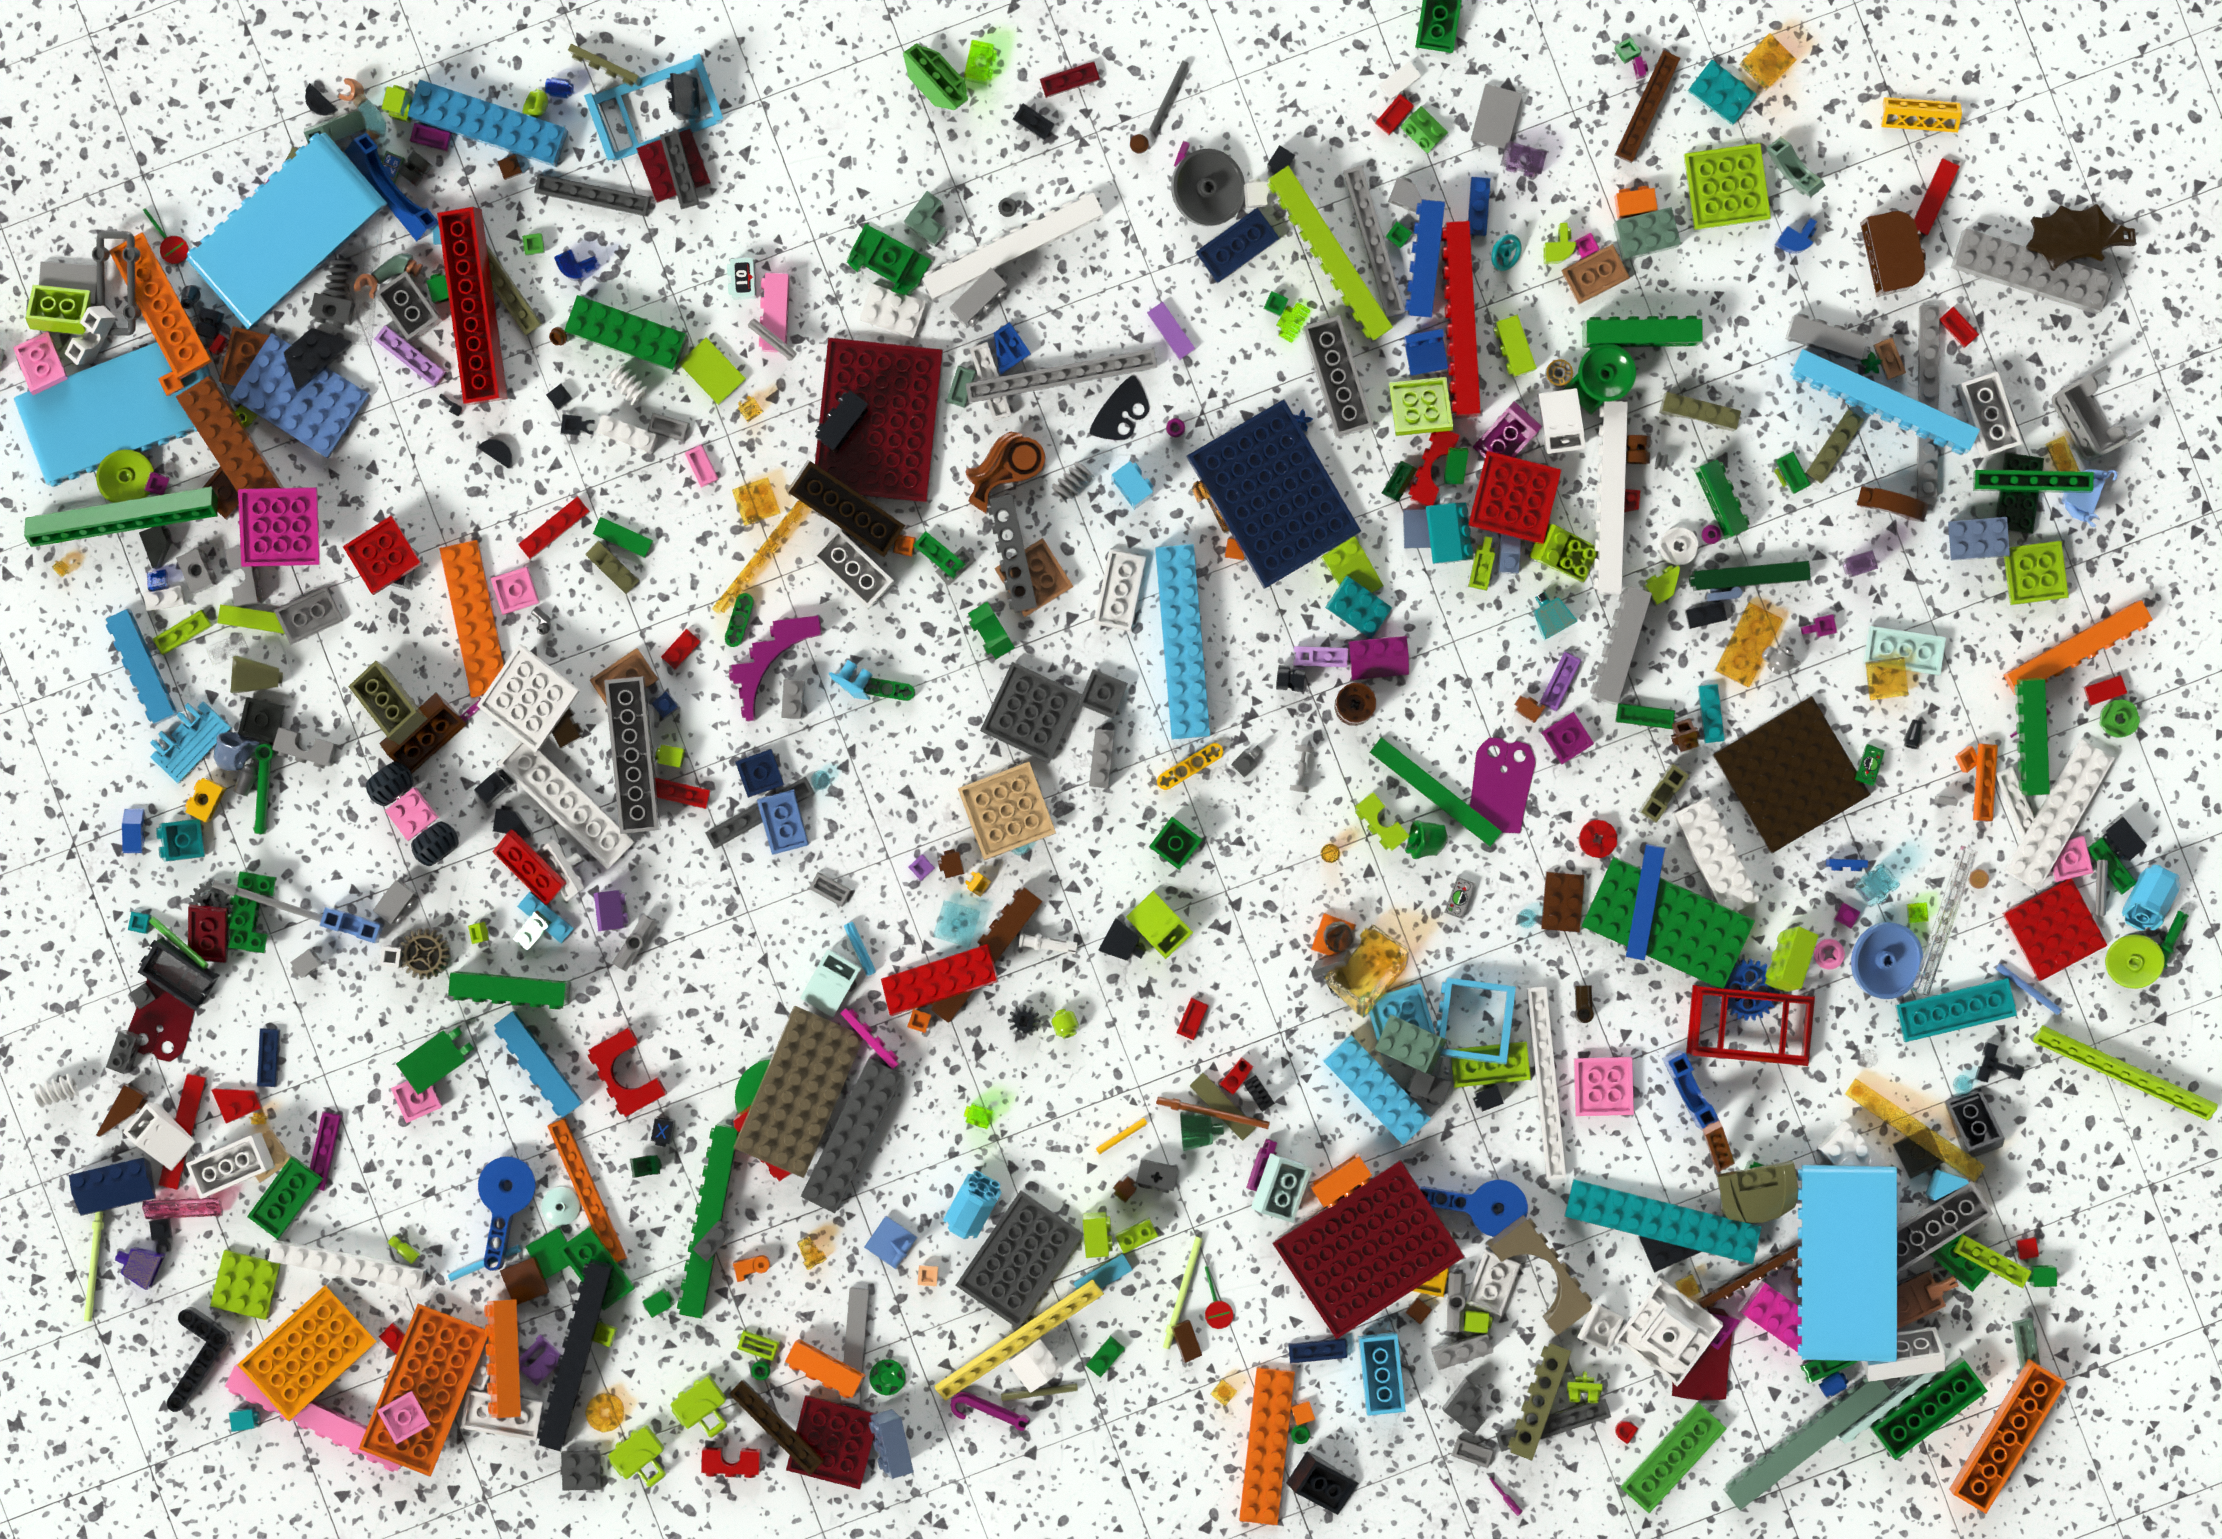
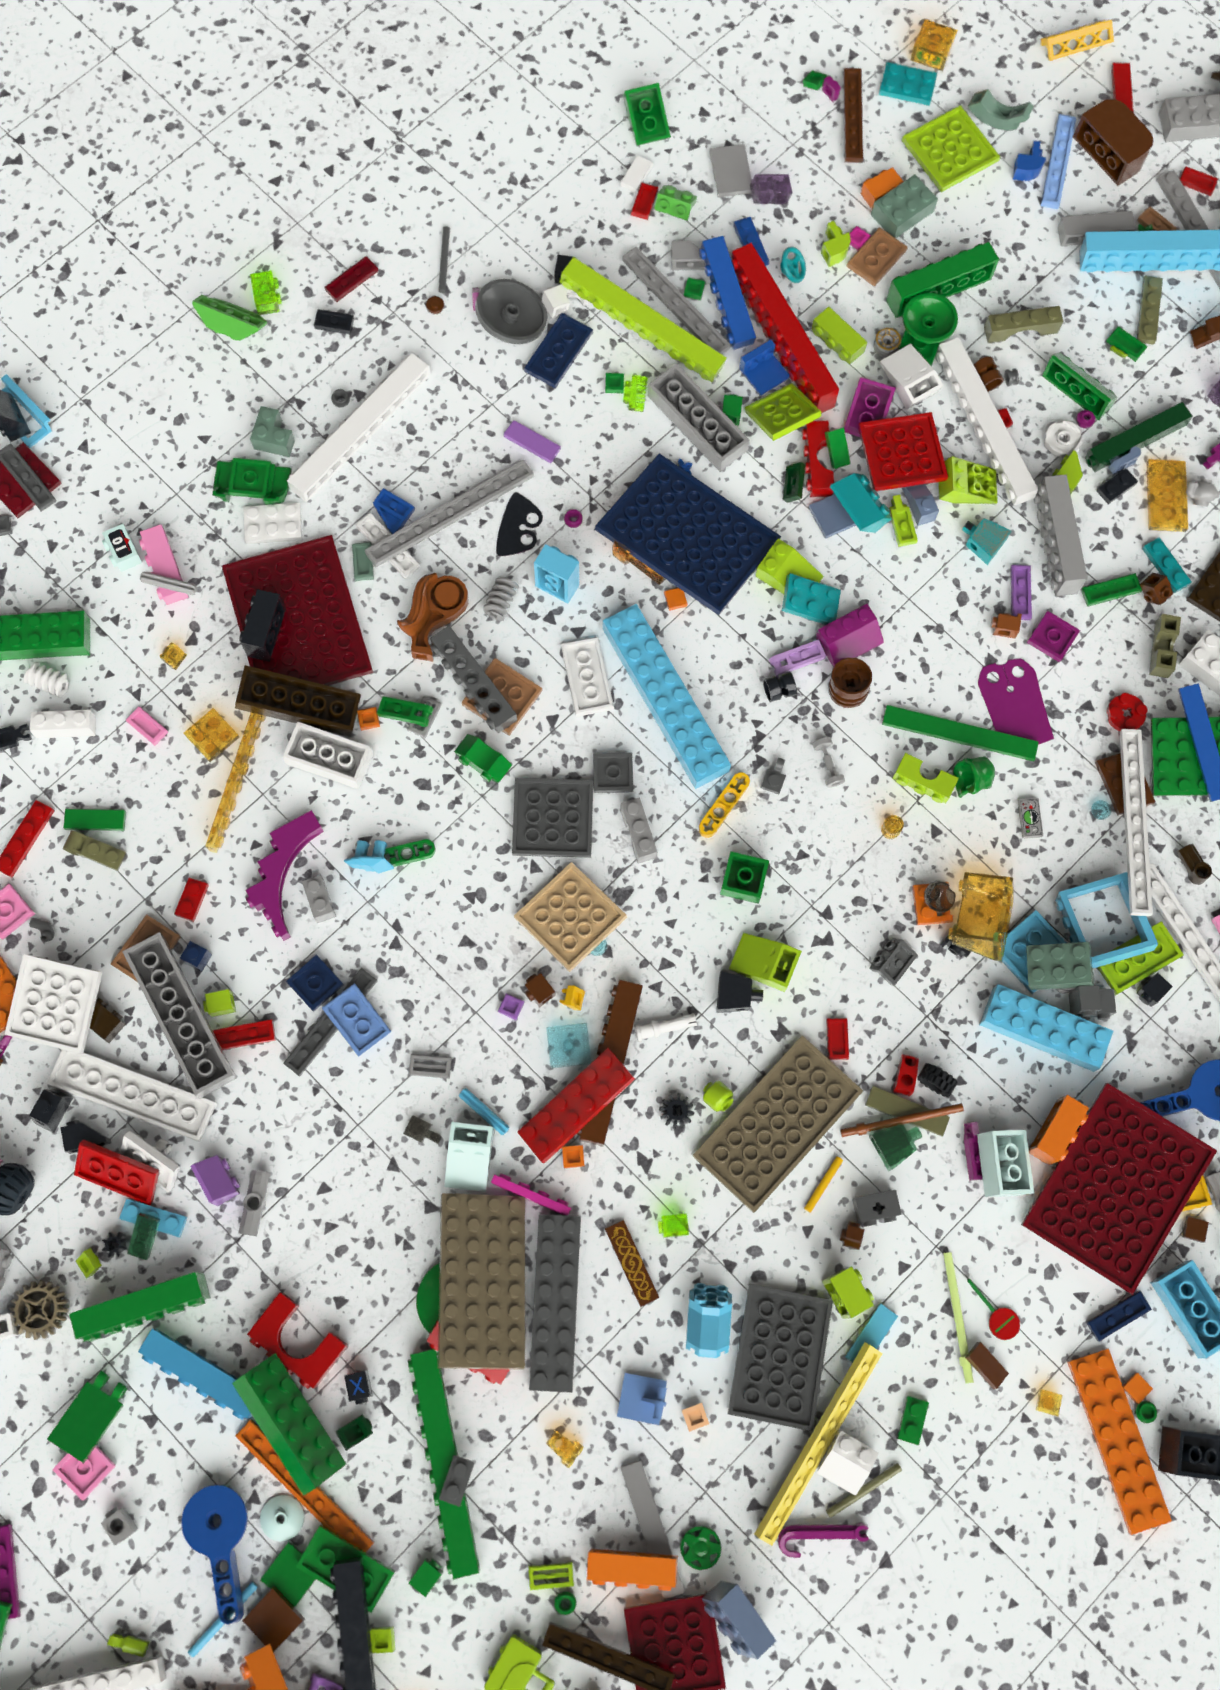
camera: 25 degrees left, 15 degrees down
(426, 1163) = (128, 1525): none -> light grey brick
(500, 927) = (119, 1240): none -> black gear
(595, 1137) = (289, 1424): none -> green brick
(668, 427) = (102, 703): light grey tile -> none
(712, 371) = (124, 639): lime tile -> none
(738, 604) = (243, 862): green beam -> none
(751, 1265) = (515, 1485): orange leg -> none
(798, 940) = (420, 1129): none -> clear smoke plate
(820, 780) = (377, 964): clear light blue plate -> none
(930, 1130) = (632, 1263): none -> reddish brown tile
(979, 298) = (346, 476): light grey brick -> none
(1106, 1068) = (777, 1124): none -> dark tan plate
(1136, 1235) = (886, 1277): lime brick -> none
(1273, 973) = (894, 960): none -> dark grey bracket
(1331, 963) = (942, 927): dark grey tile -> none
(1375, 380) = (732, 407): none -> green brick
(1546, 945) = (1135, 823): none -> white plate
(1829, 245) = (1058, 161): none -> light blue tile

